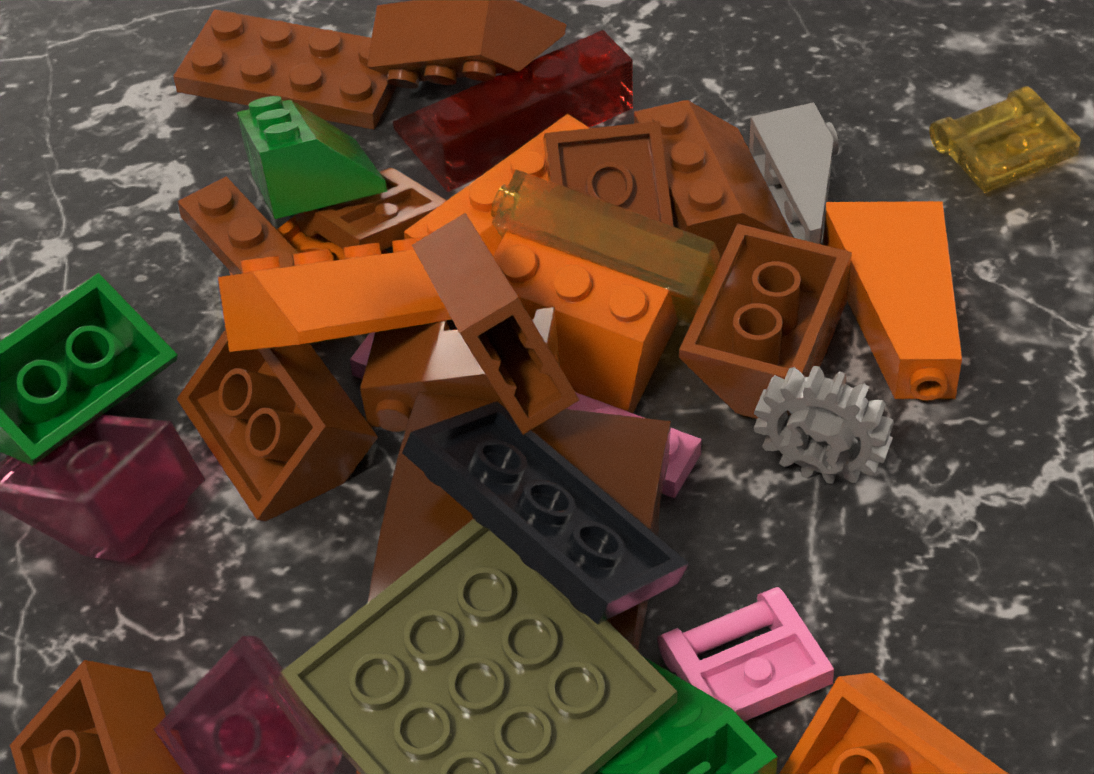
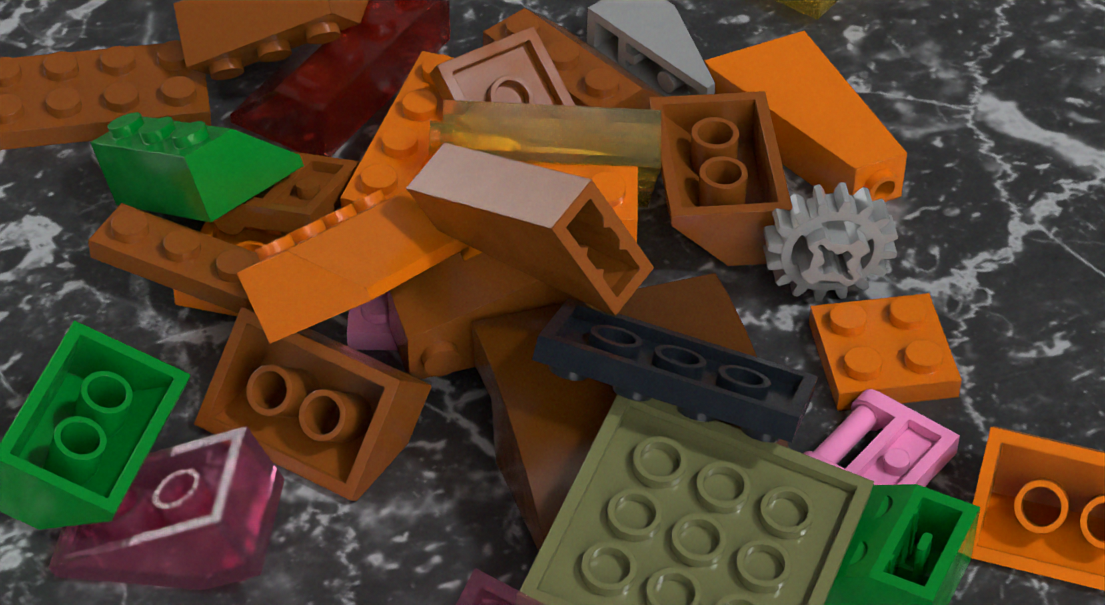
camera: 30 degrees left, 5 degrees down
(830, 552) = (884, 347): none -> orange plate

